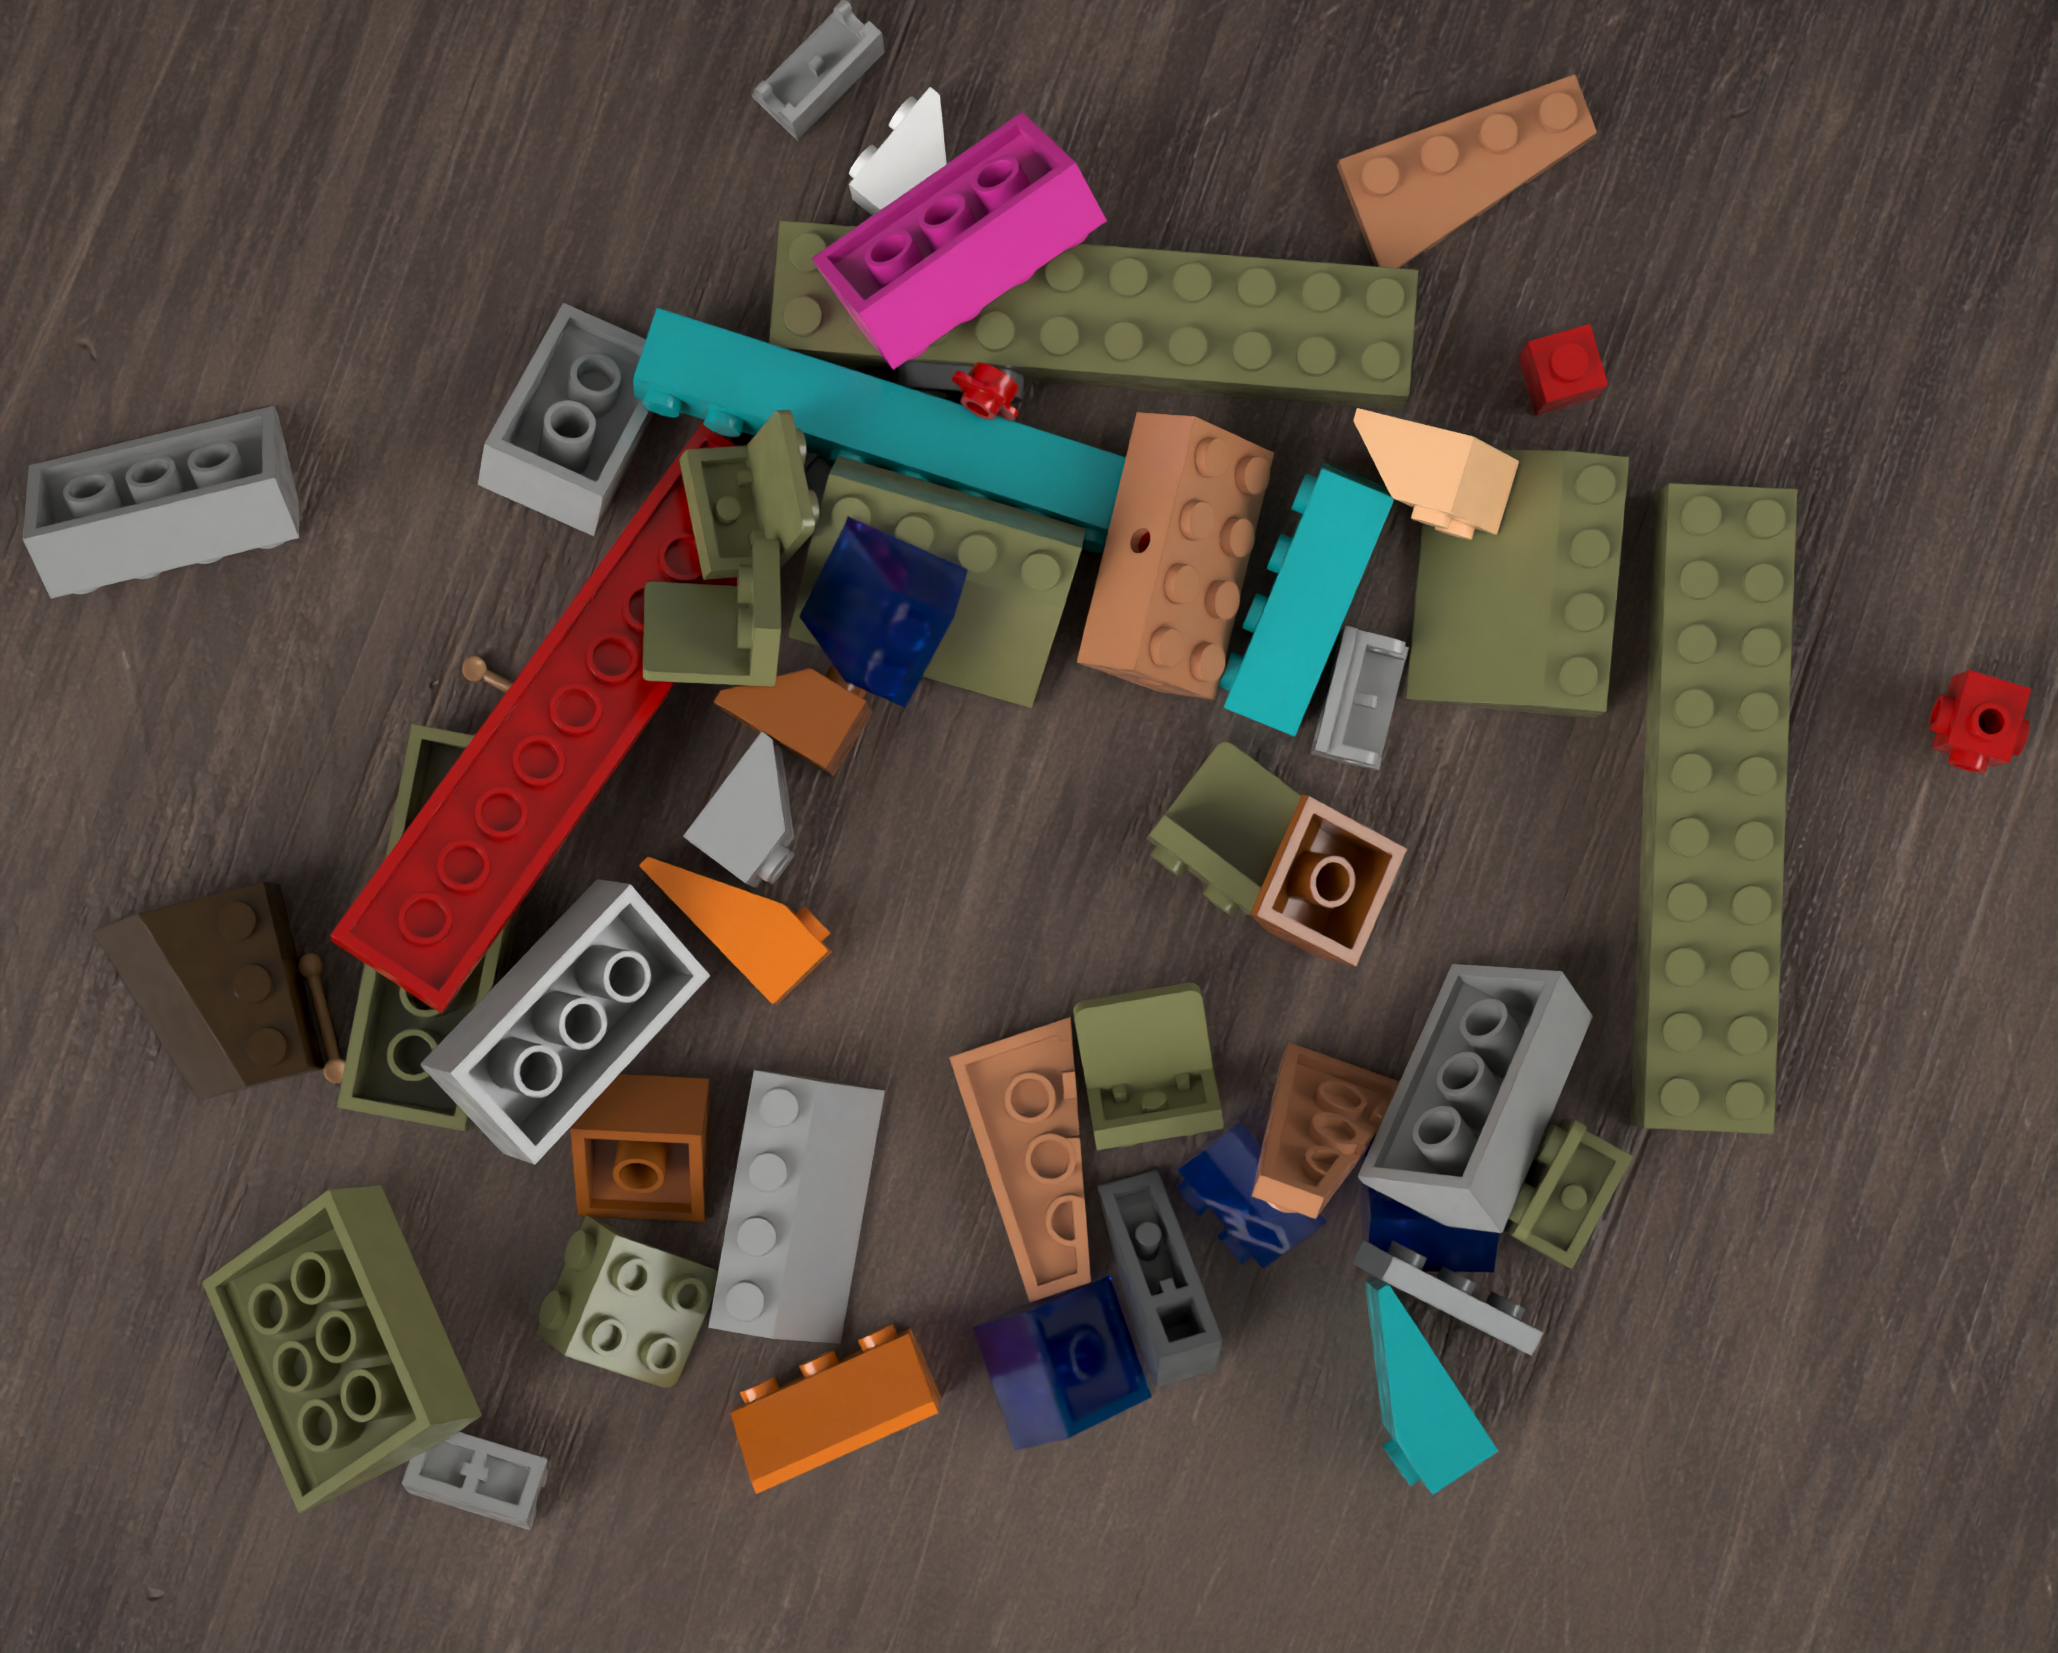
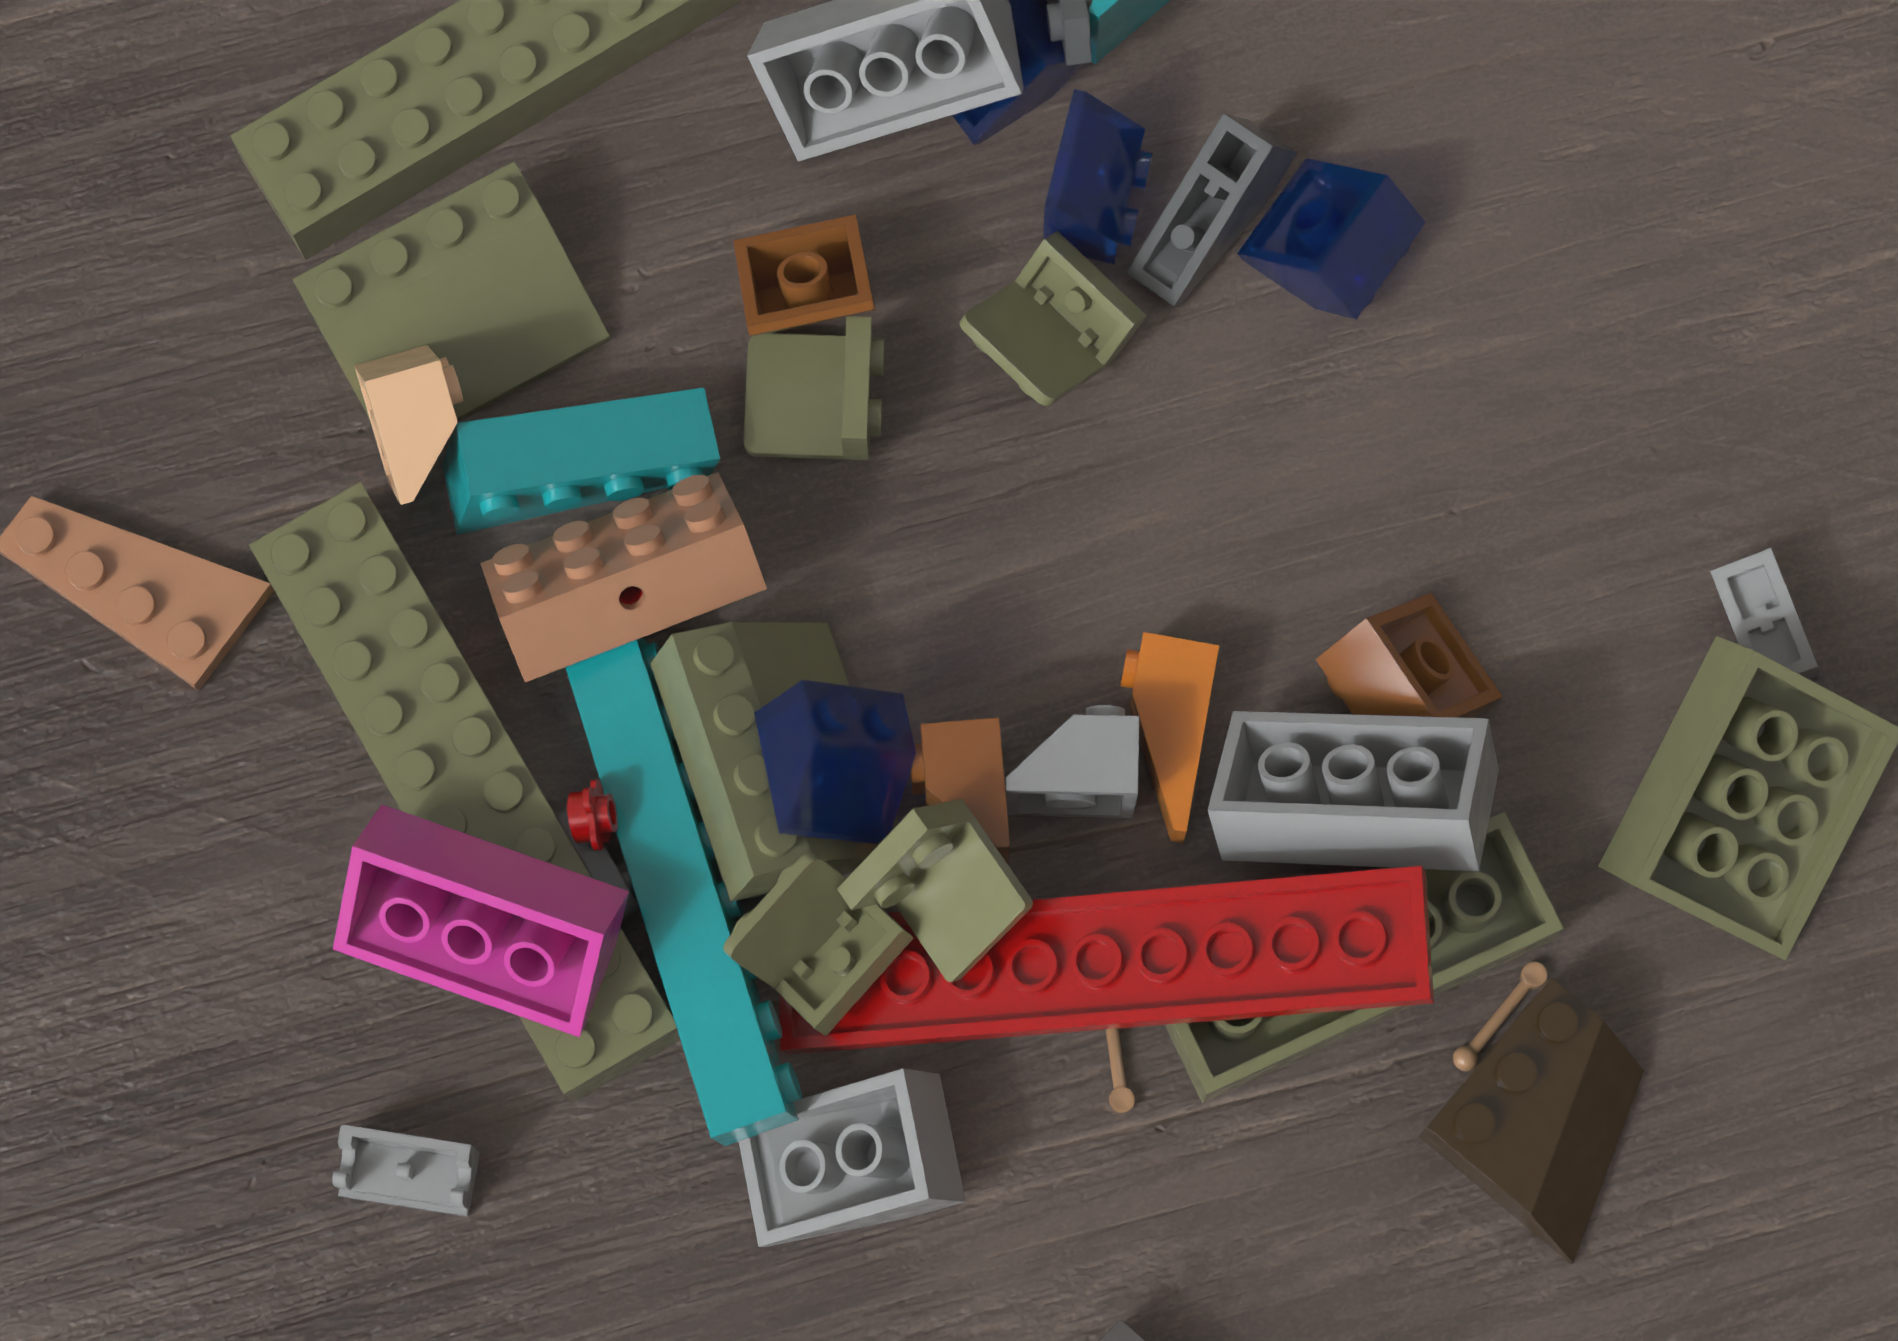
camera: 125 degrees left, 10 degrees down
(626, 1305) = (1544, 605): olive bracket -> none
(796, 1208) = (1367, 526): light grey slope -> none
(834, 1407) = (1499, 375): orange slope -> none
(904, 158) = (438, 1031): white slope -> none
(1029, 1138) = (1173, 387): nougat wing -> none
(1317, 1129) = (1005, 149): nougat wing -> none
(1359, 698) = (641, 366): light grey hinge -> none
(1562, 369) = (253, 387): red brick -> none

